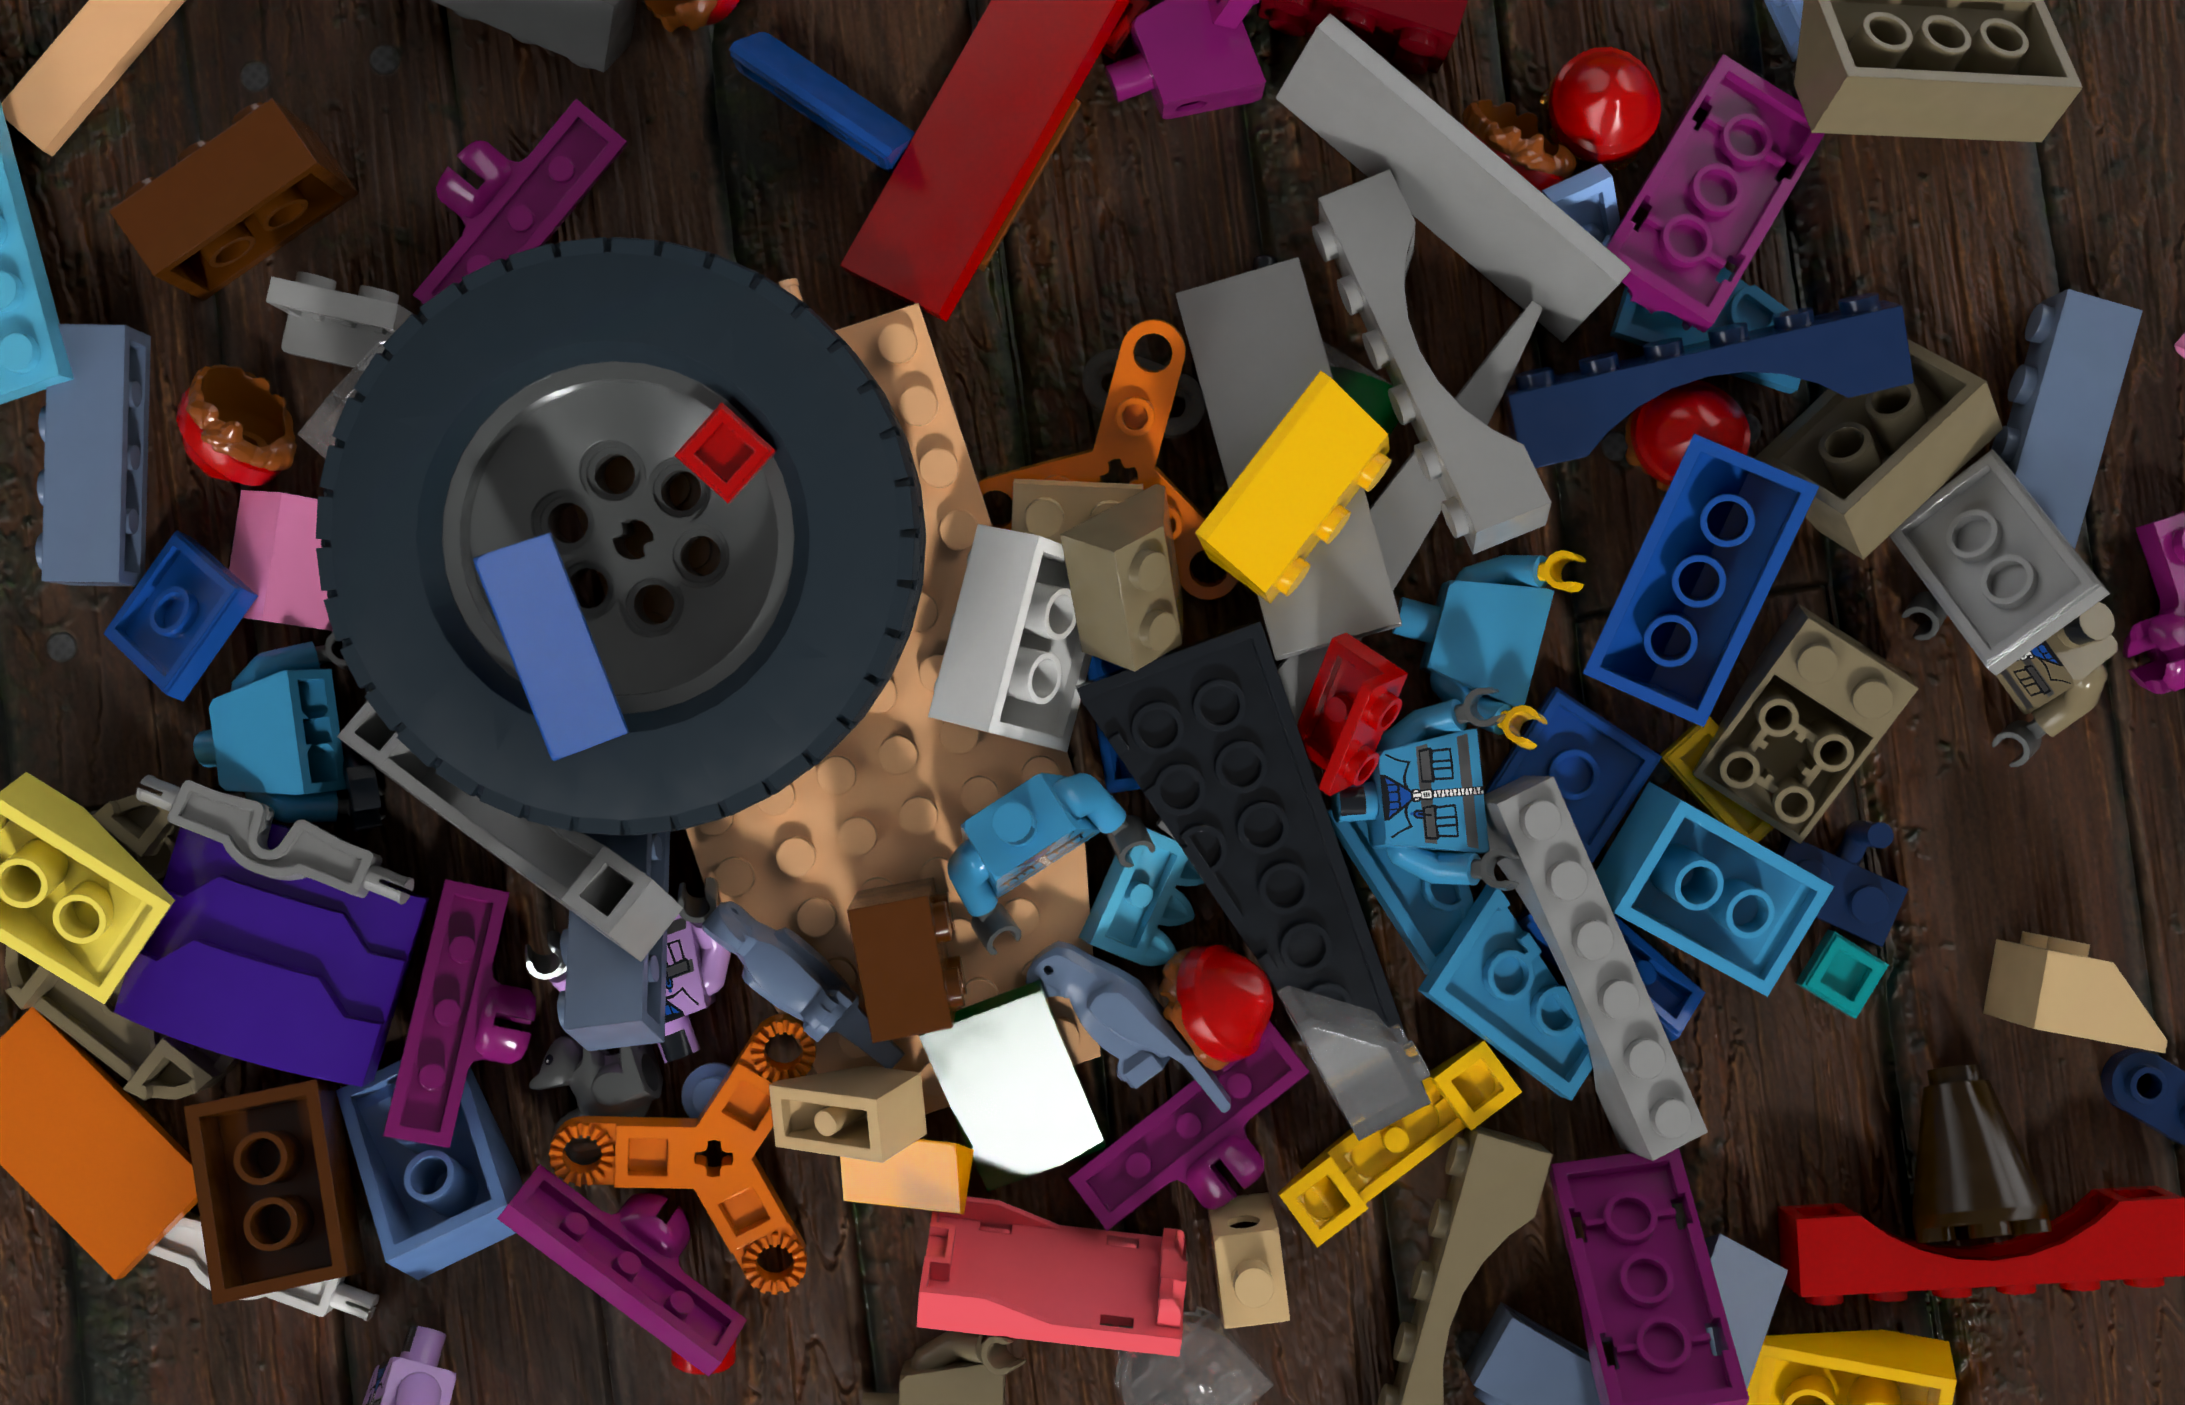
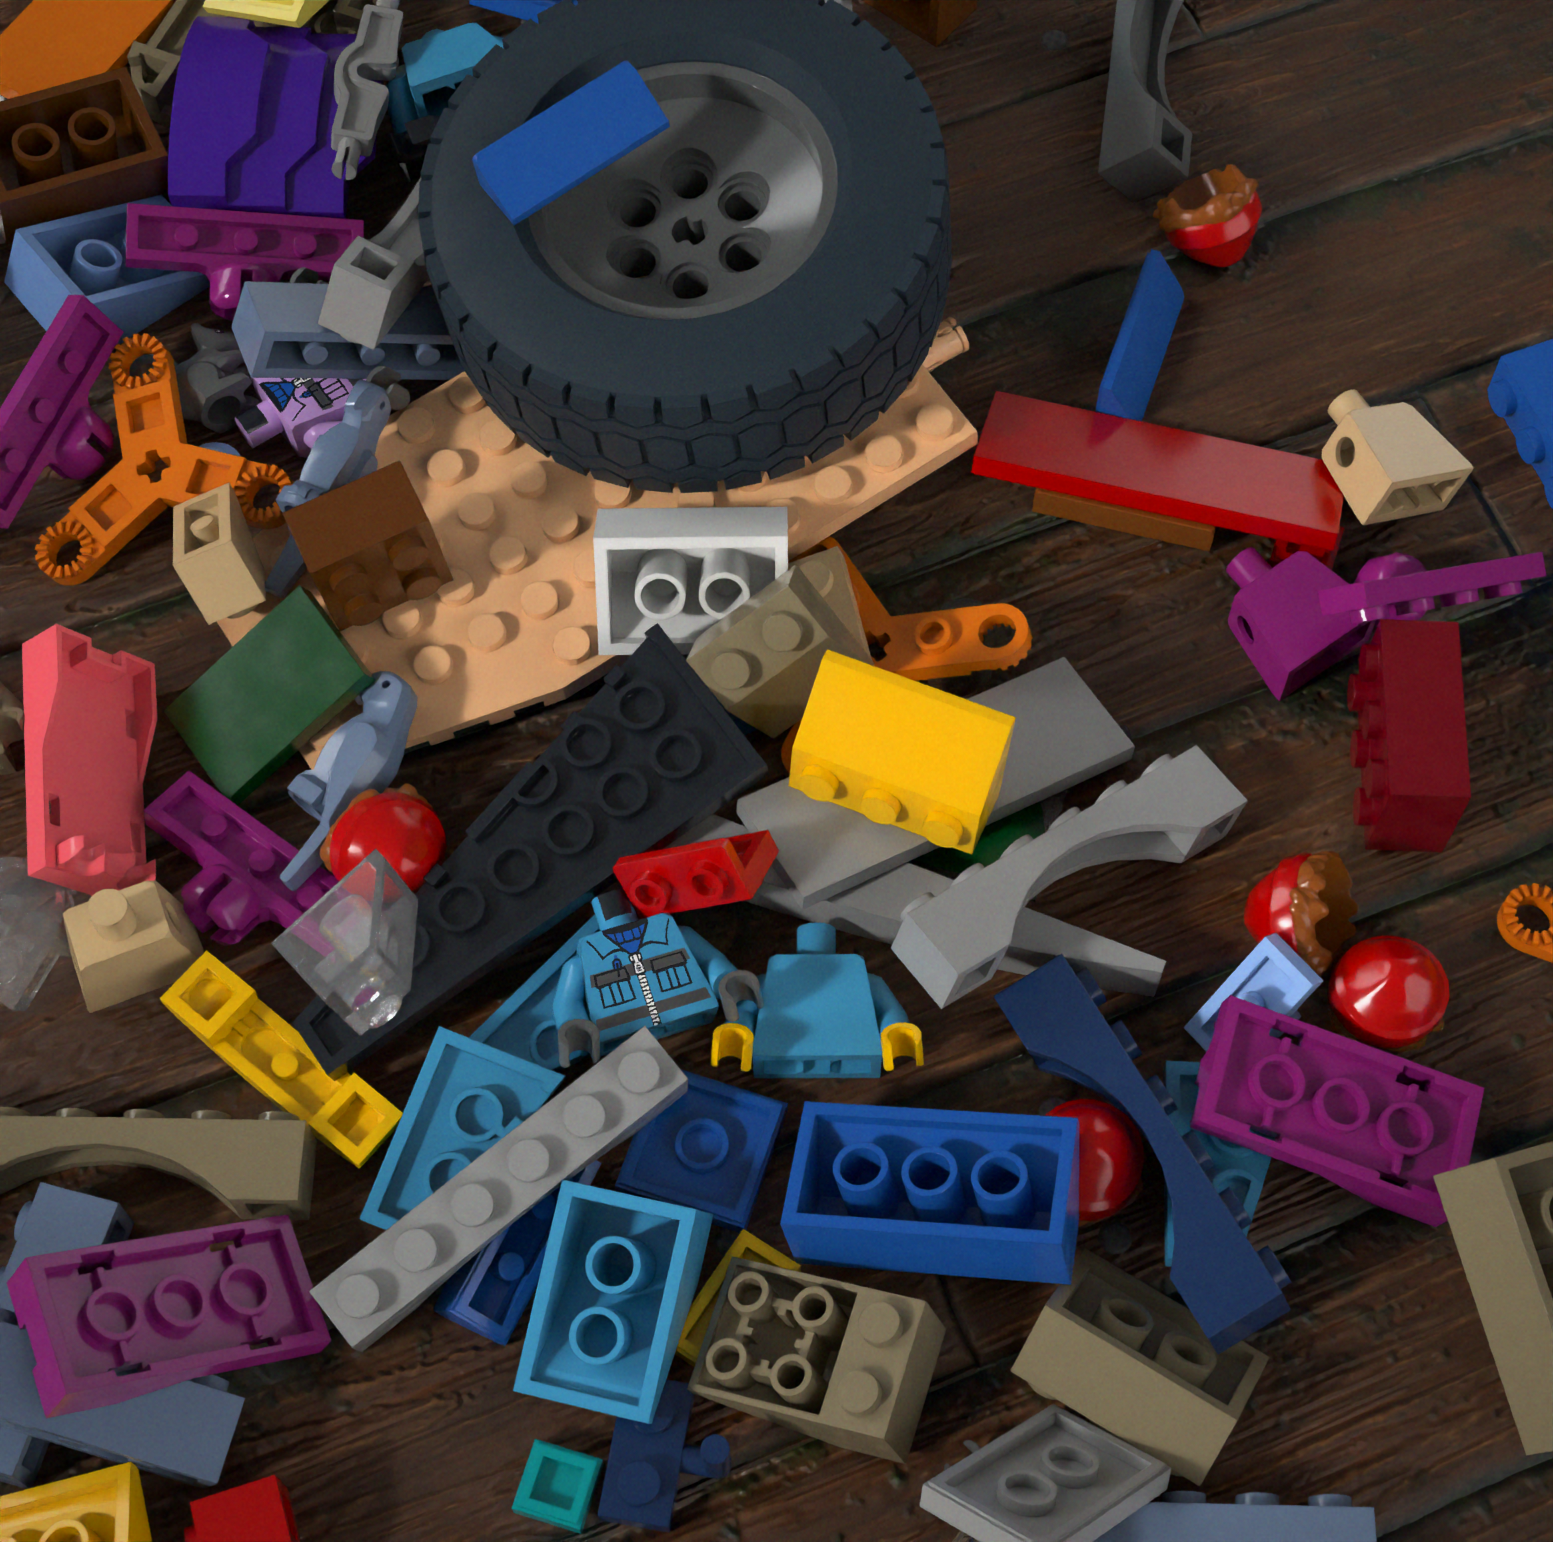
camera: 75 degrees right, 25 degrees down
(521, 200) = (988, 160): magenta plate -> none
(725, 453) = (777, 236): red tile -> none
(920, 1177) = (168, 631): light orange slope -> none
(1027, 834) = (510, 622): dark azure torso -> none
(1139, 900) = (469, 764): medium azure plate -> none
(1450, 179) = (1255, 860): light grey tile -> none

